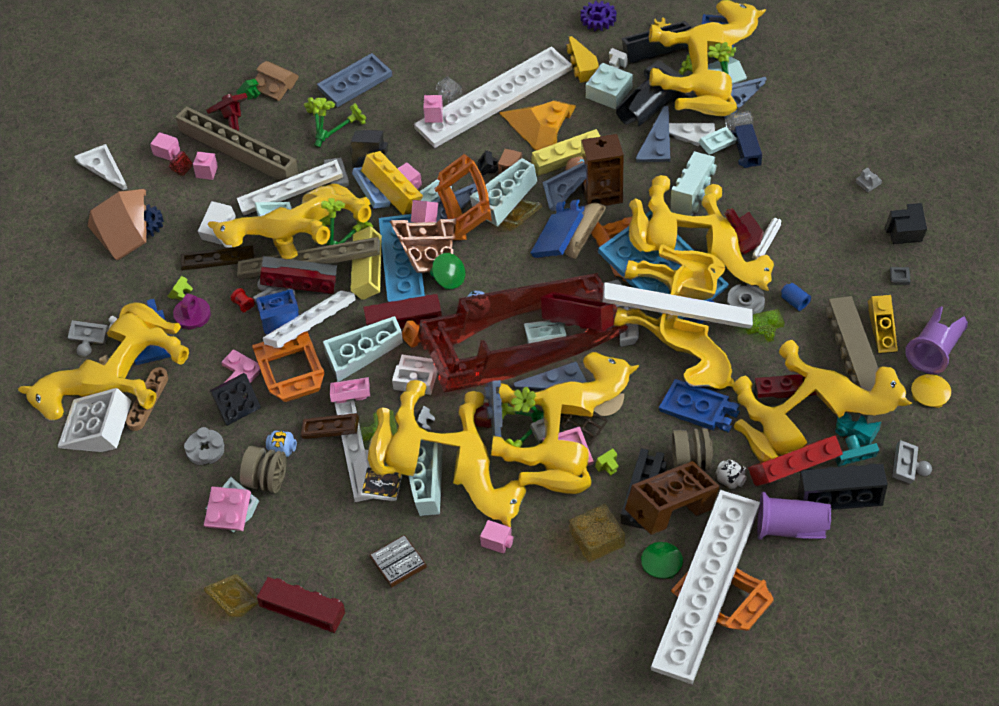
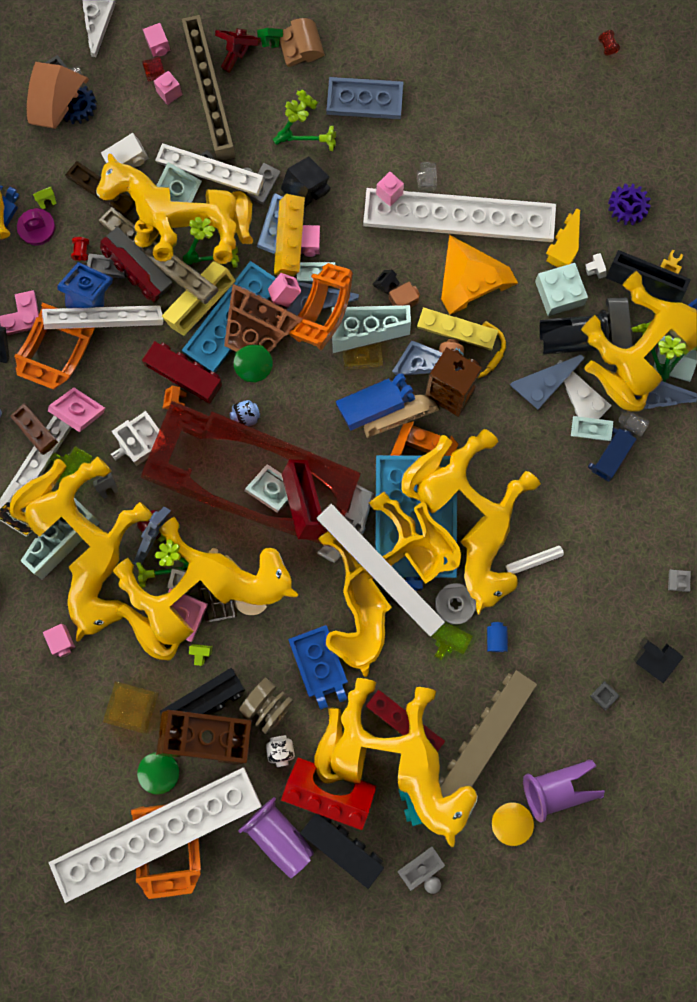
camera: 40 degrees right, 25 degrees up
(362, 346) = (113, 375): light aqua wedge -> none
(562, 374) = (241, 542): sand blue wing -> none
(692, 183) = (528, 453): light aqua wedge -> none
(747, 230) = (520, 540): dark red piece -> none
(855, 452) = (392, 824): teal tile -> none
(883, 323) = (539, 729): yellow slope -> none

